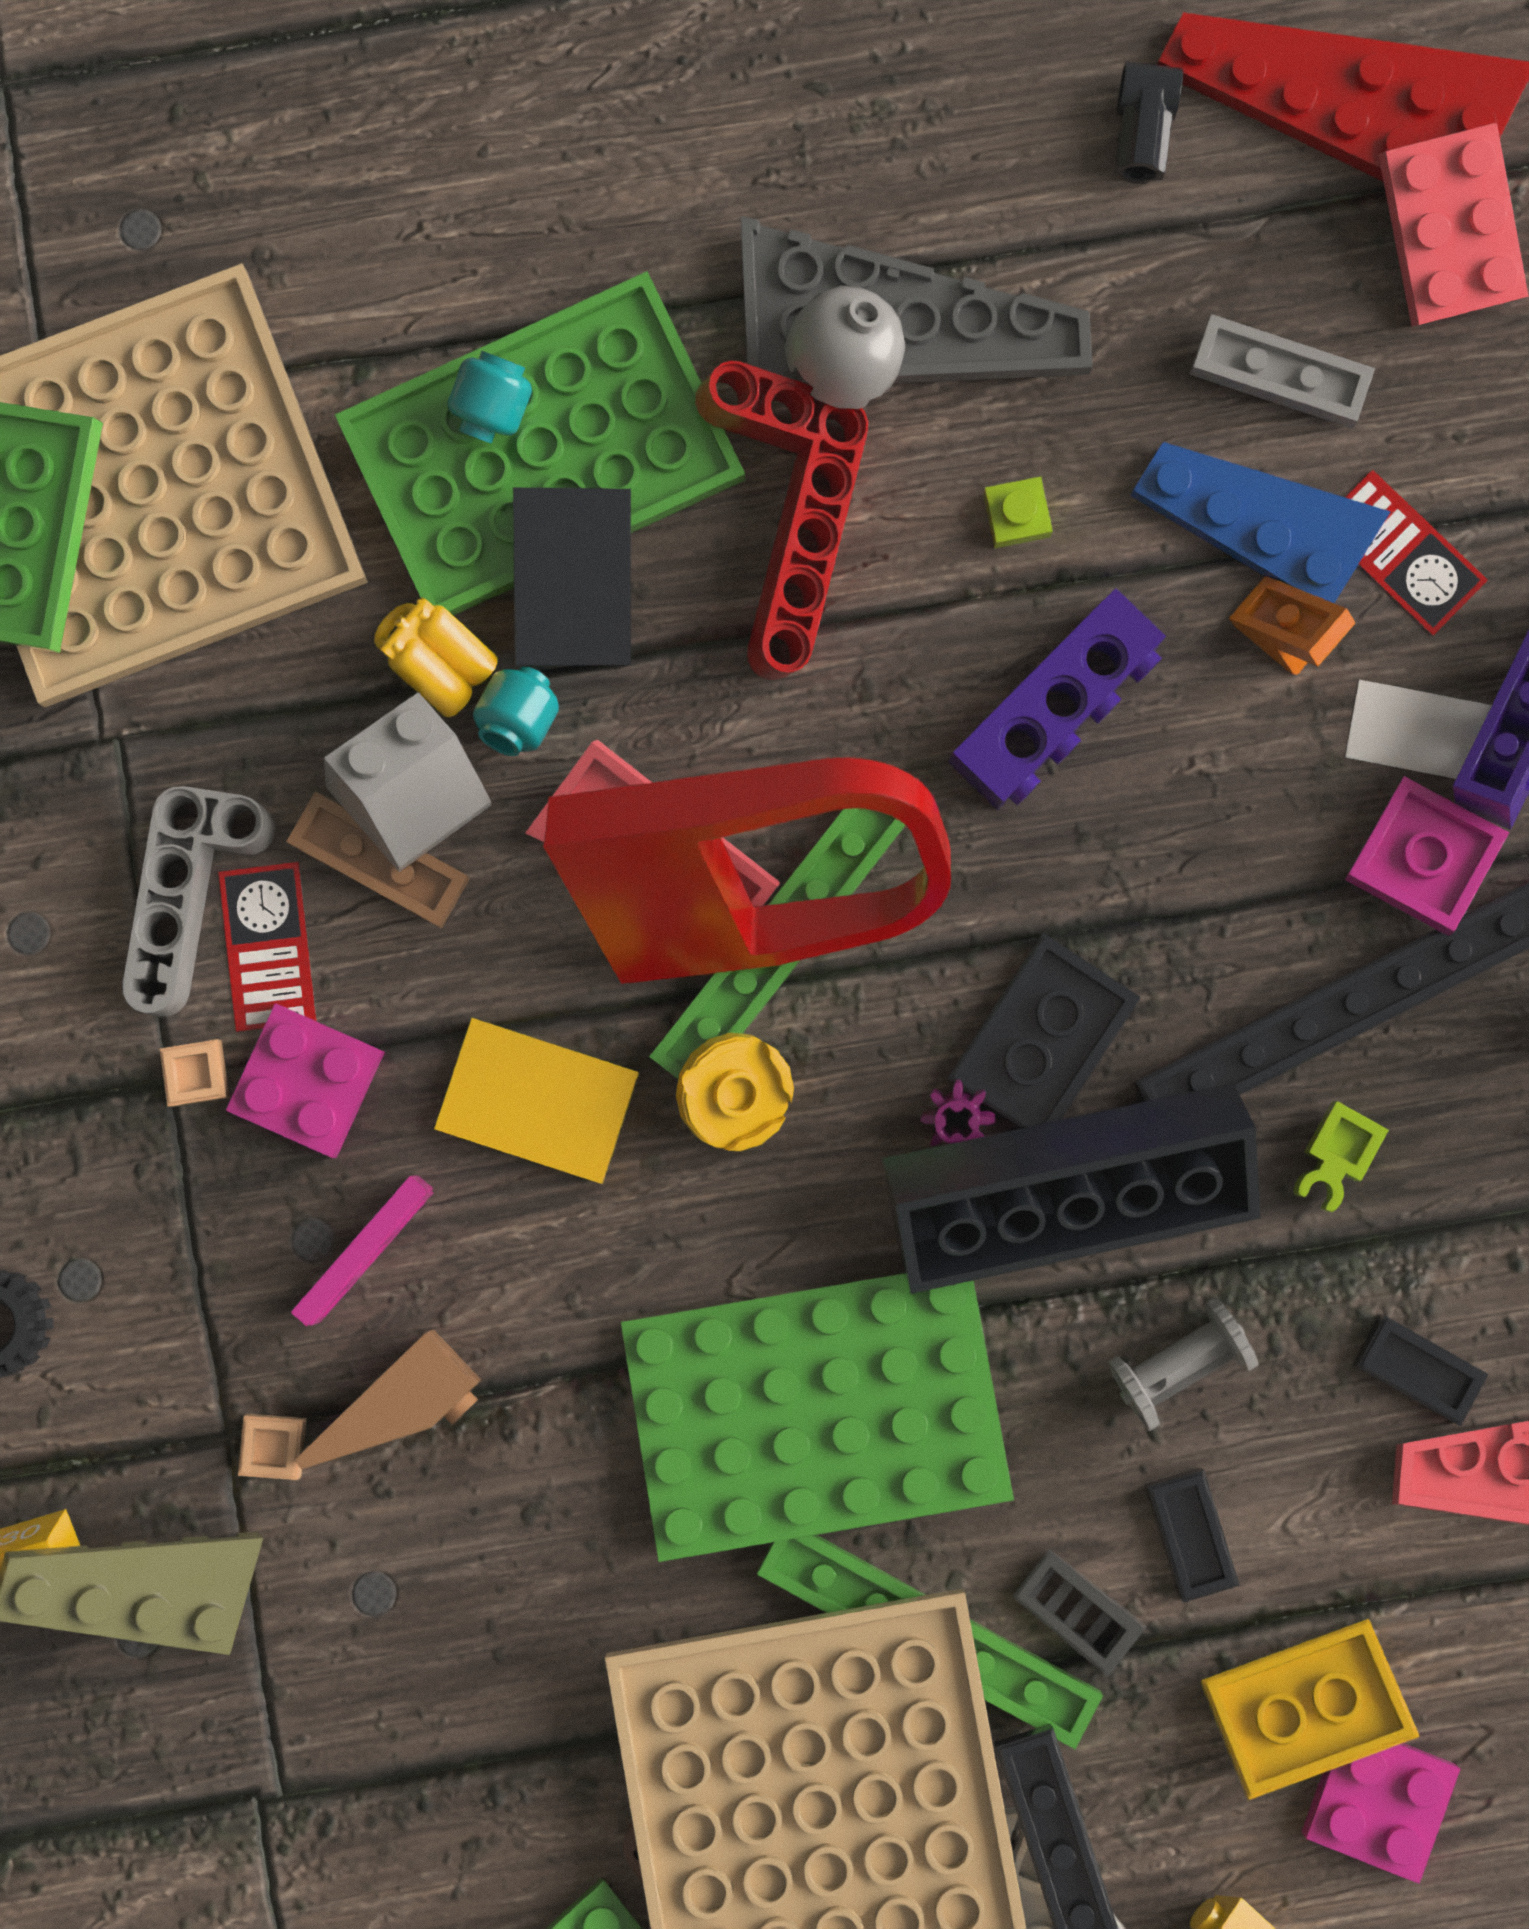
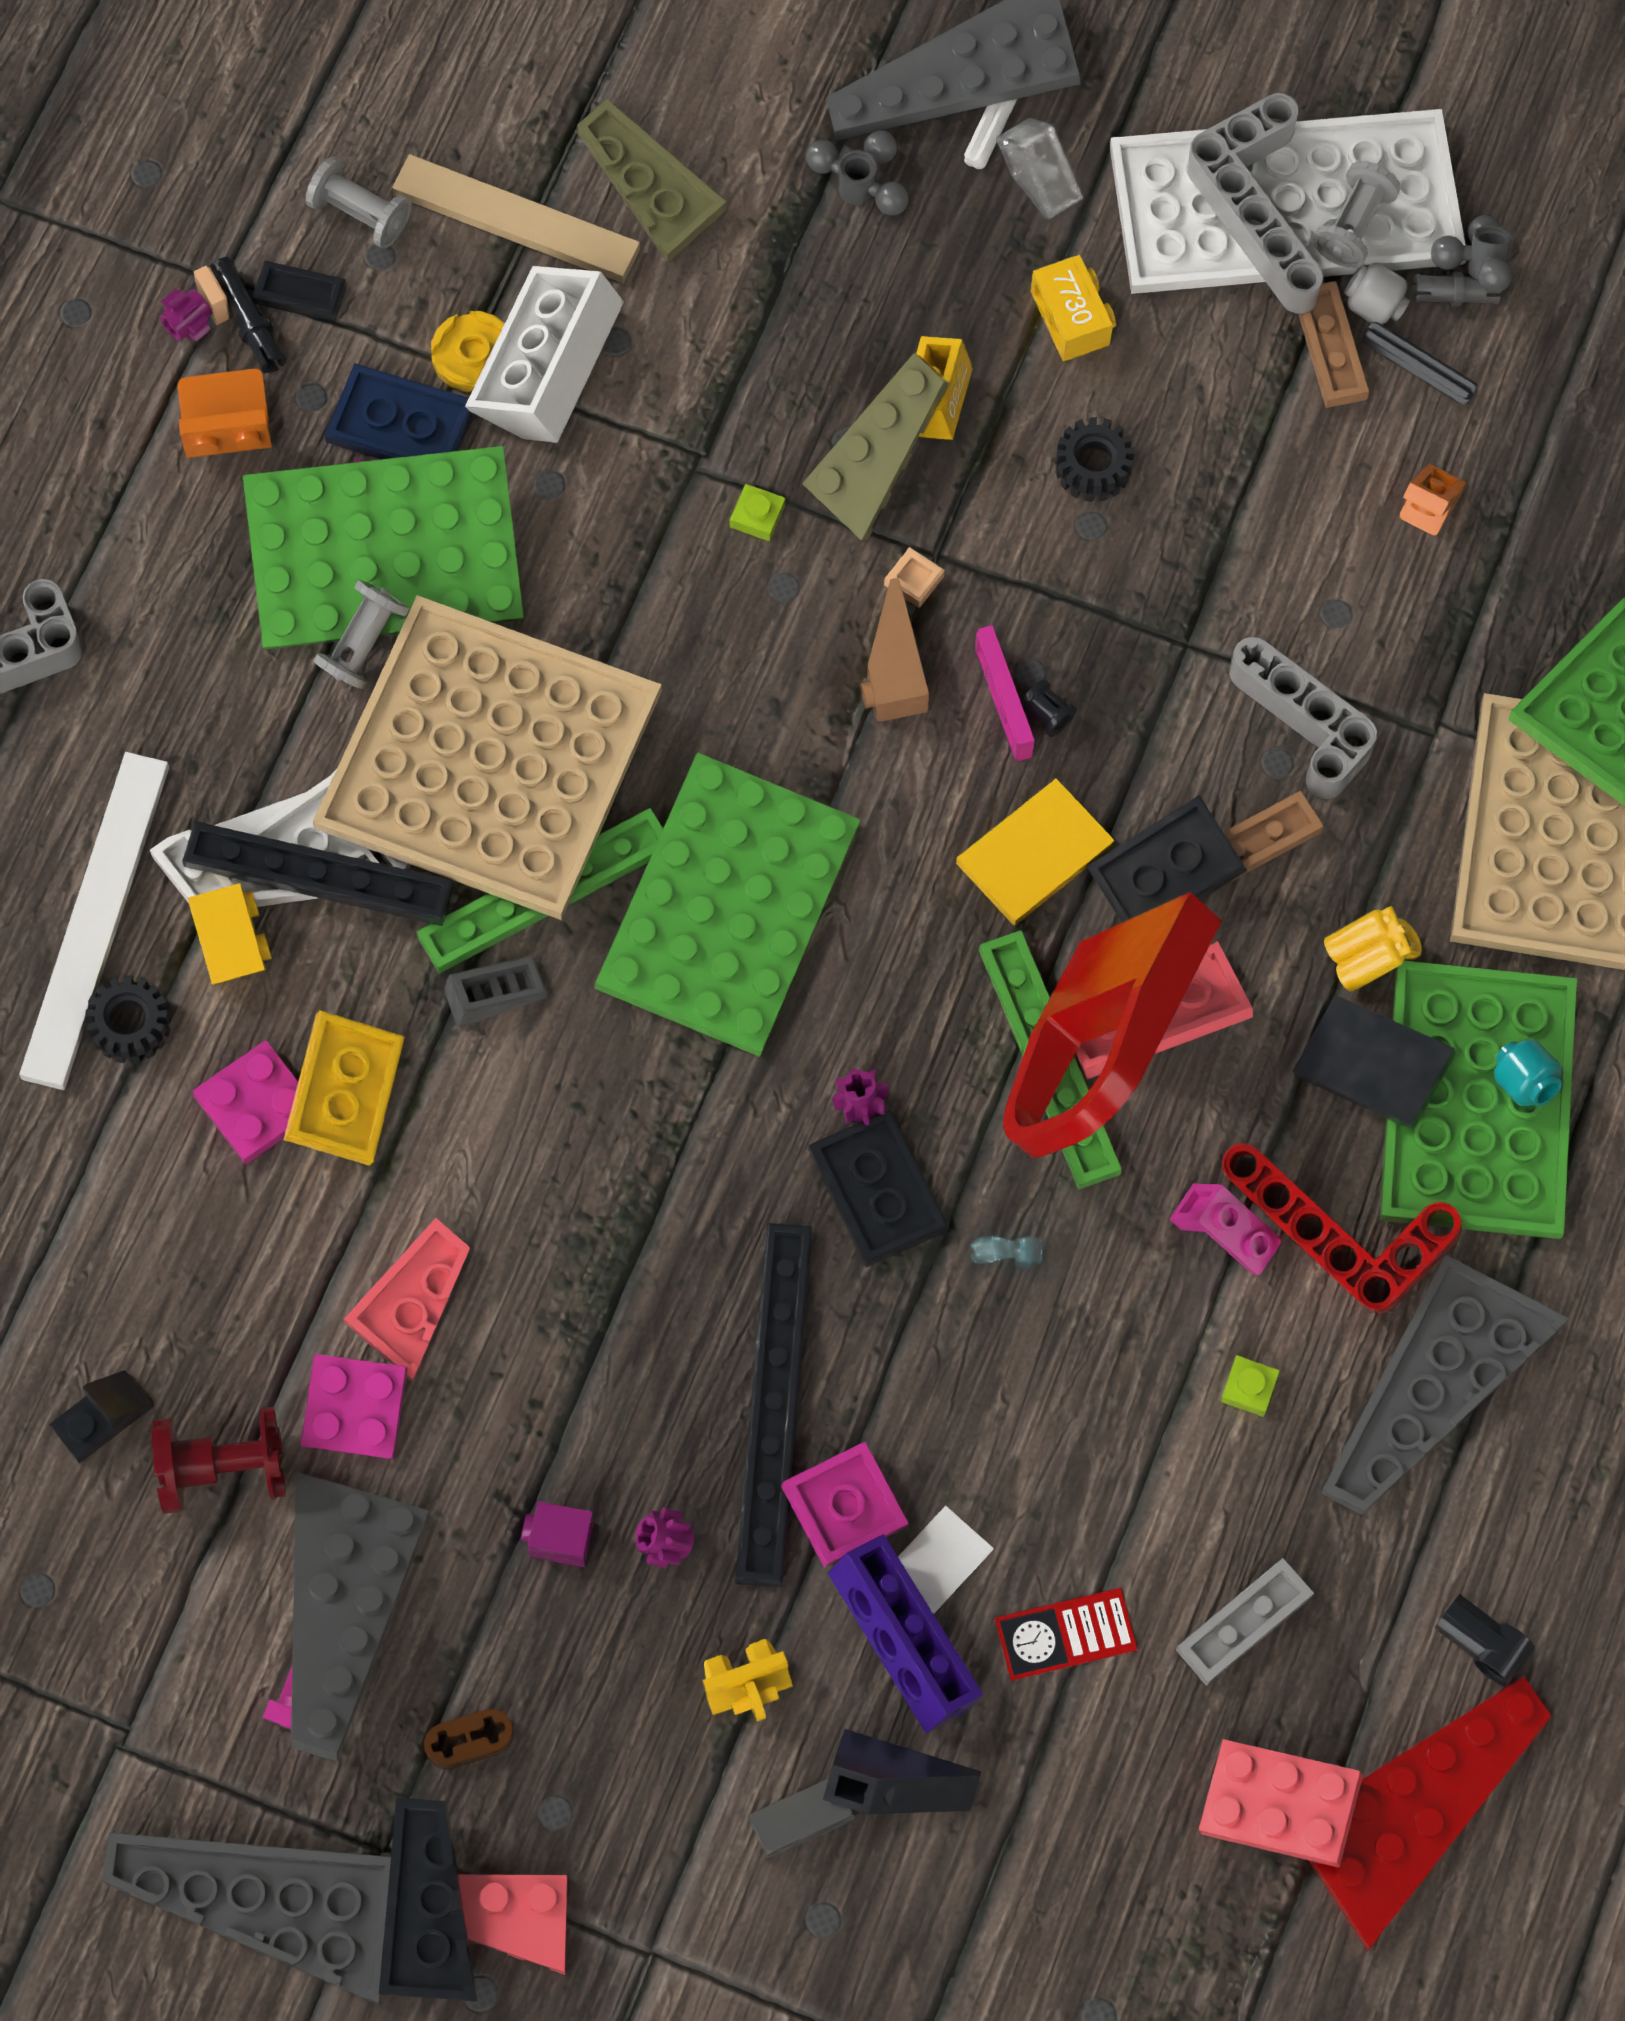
camera: 120 degrees right, 15 degrees down
(194, 1073) = (1182, 660): light nougat tile -> none
(266, 943) = (1239, 749): sticker -> none
(297, 1685) = (757, 512): none -> lime plate
(305, 1081) = (1136, 722): dark pink plate -> none
(351, 1189) = (1048, 708): none -> black bush
(406, 781) = (1294, 880): light grey slope -> none
(473, 936) = (1166, 861): none -> black tile
(515, 711) = (1303, 979): teal head -> none
(734, 1091) = (965, 969): yellow tile -> none
(846, 346) = (1426, 1300): light grey cylinder -> none
(857, 636) = (1229, 1222): none -> dark pink bracket
(1040, 867) = (994, 1248): none -> clear light blue arm
(1074, 1187) = (770, 1130): black brick -> none
(1110, 628) = (1093, 1257): dark purple brick -> none
(1183, 1363) = (612, 1139): light grey hose -> none
(1192, 1535) = (497, 1088): black tile -> none
(1262, 519) = (1133, 1553): blue wing -> none
(1291, 624) = (1061, 1513): orange slope -> none
(1344, 1147) = (684, 1330): lime plate -> none
(1420, 1369) = (506, 1295): black tile -> none

